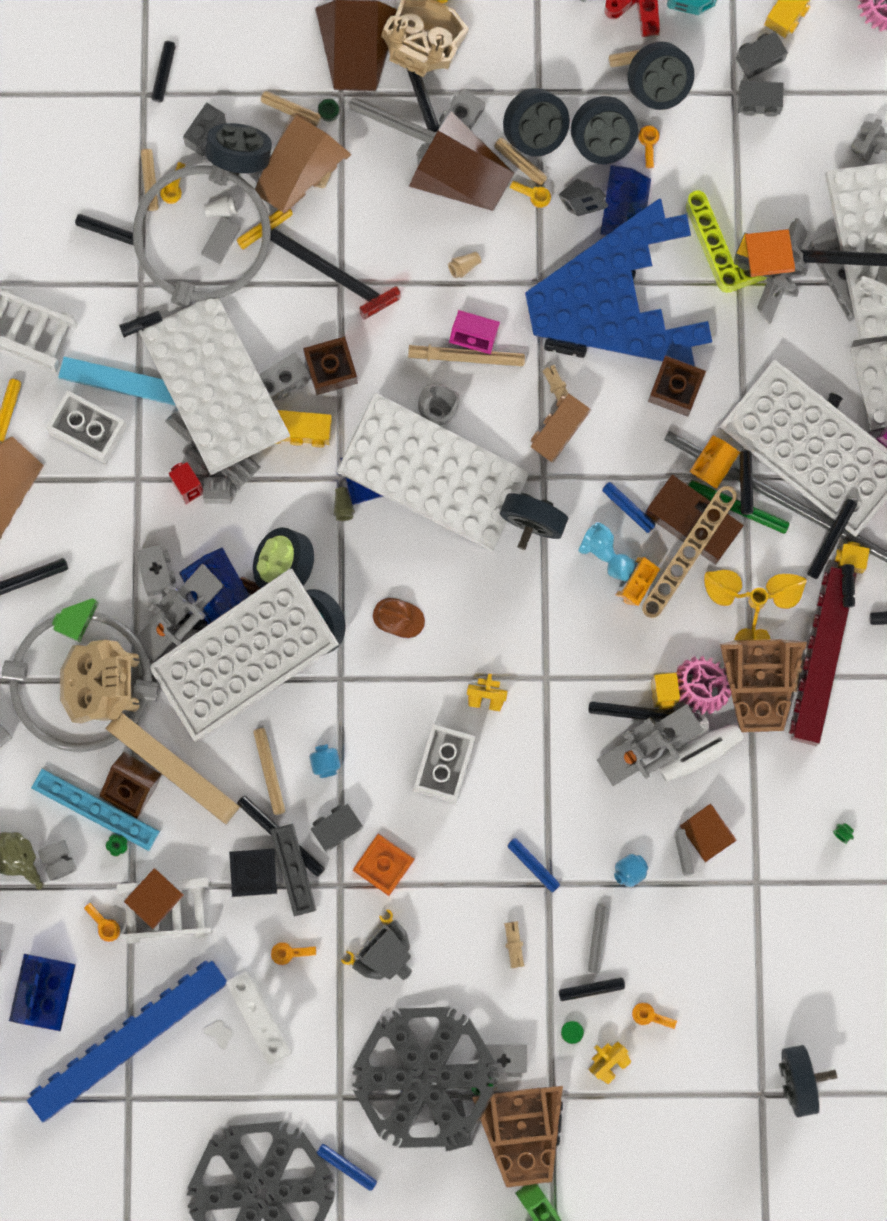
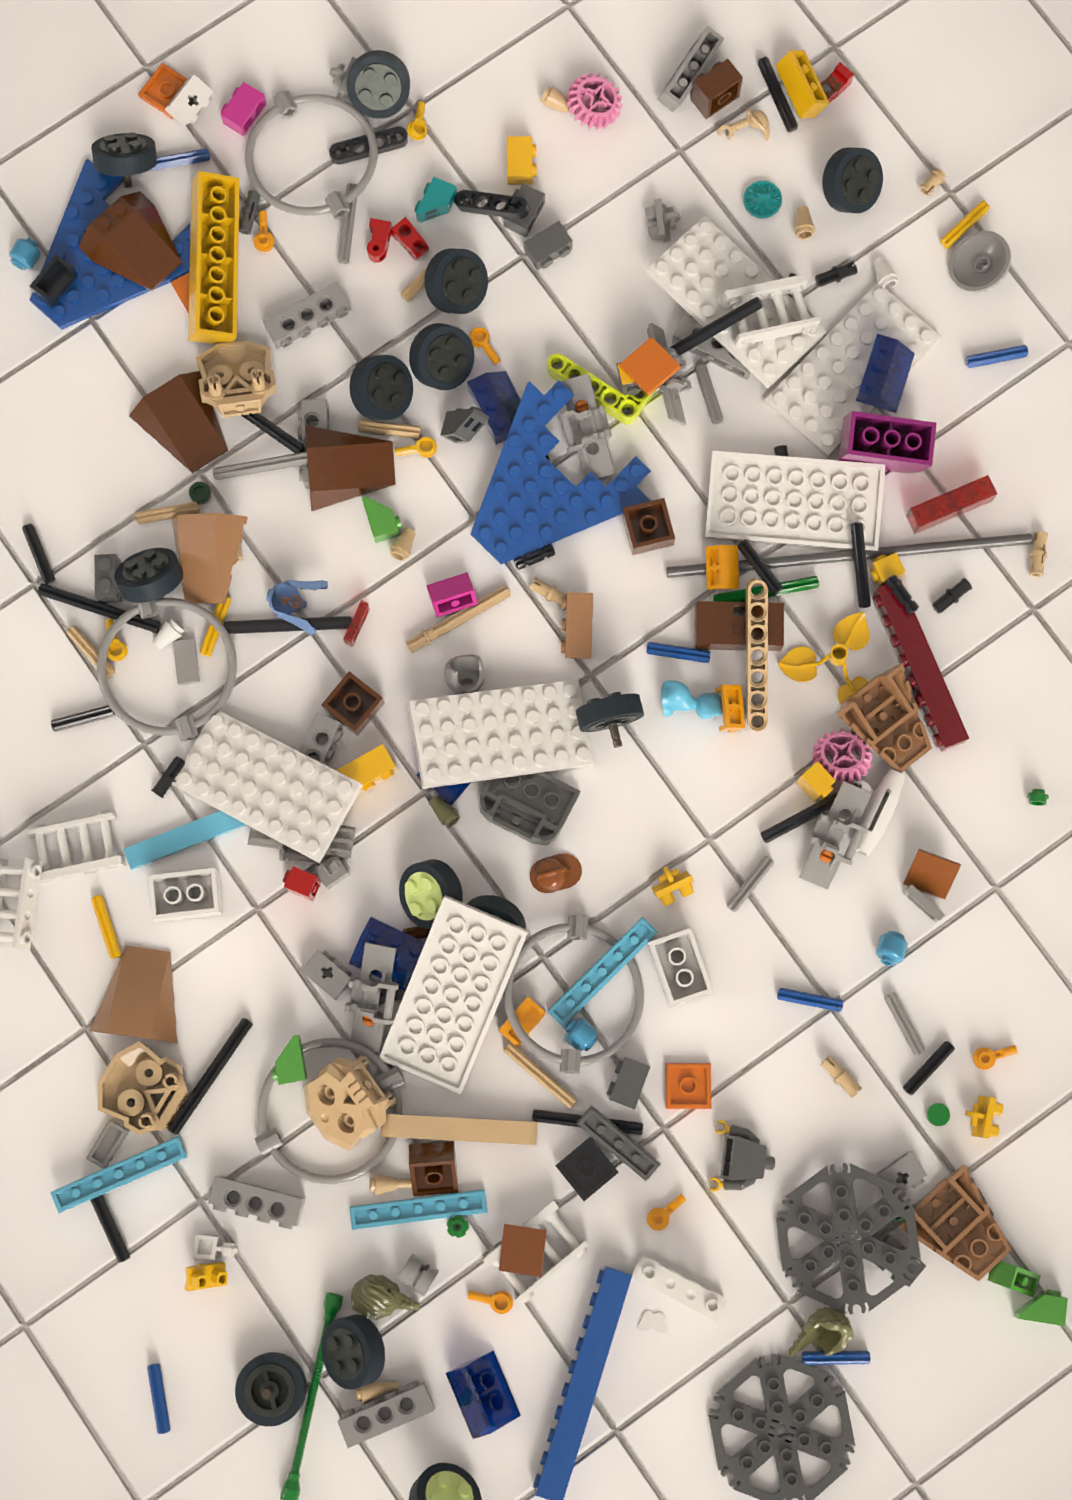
camera: 30 degrees left, 0 degrees up
(82, 770) = (382, 1184): none -> tan cone
(179, 146) = (96, 607): none -> black axle
(285, 717) = (528, 1015): none -> light orange hinge
(301, 773) = (571, 1059): none -> light grey piece
(336, 236) = (288, 590): none -> medium blue piece
(354, 1137) = (826, 1329): none -> olive hair
(379, 723) = (602, 971): none -> medium azure tile
(415, 547) = (528, 805): none -> dark grey plate
(460, 232) = (381, 520): none -> bright green slope
(528, 16) = (313, 304): none -> light grey brick
(552, 737) = (750, 884): none -> light grey axle
(690, 273) = (593, 427): none -> light grey piece
(733, 33) = (492, 202): none -> black beam
(808, 311) = (709, 393): none -> light grey axle

